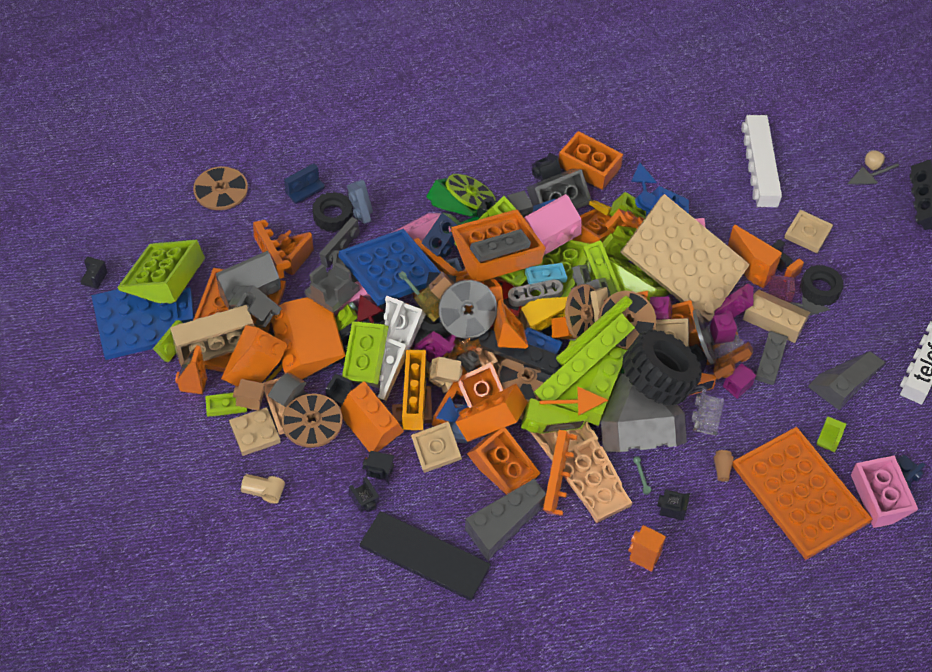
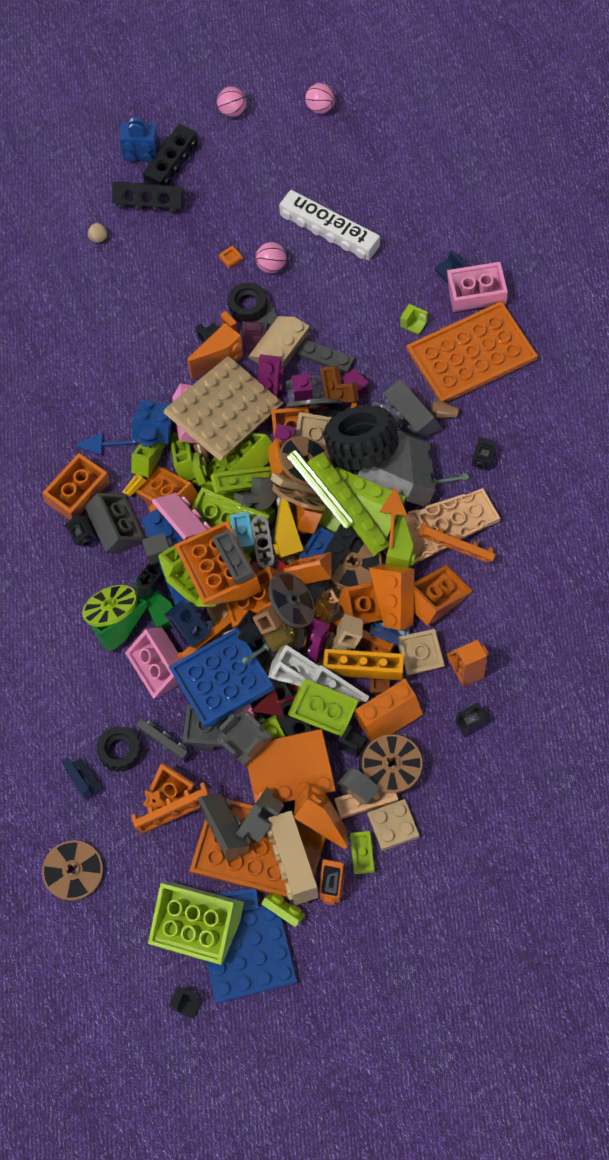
camera: 80 degrees left, 10 degrees up
(249, 394) = (360, 824): medium nougat brick -> none
(268, 489) = (461, 809): tan piece -> none
(360, 201) = (116, 715): sand blue bracket -> none
(379, 465) = (439, 705): black window -> none
(422, 483) = (469, 662): none -> orange wedge
(425, 555) = (531, 669): black tile -> none
(502, 519) = (500, 598): dark grey wedge -> none
(625, 219) = (170, 450): orange bracket -> none
(646, 547) = (533, 477): orange brick -> none
(715, 430) = (411, 409): none -> dark grey slope
(761, 161) = (87, 331): white brick -> none
(808, 231) = (181, 303): tan plate -> none
(845, 380) = (353, 298): dark grey wedge -> none
(865, 177) = (113, 247): dark grey piece -> none
(874, 271) = (231, 257): none -> orange tile
(877, 299) = (270, 257): none -> bright pink piece

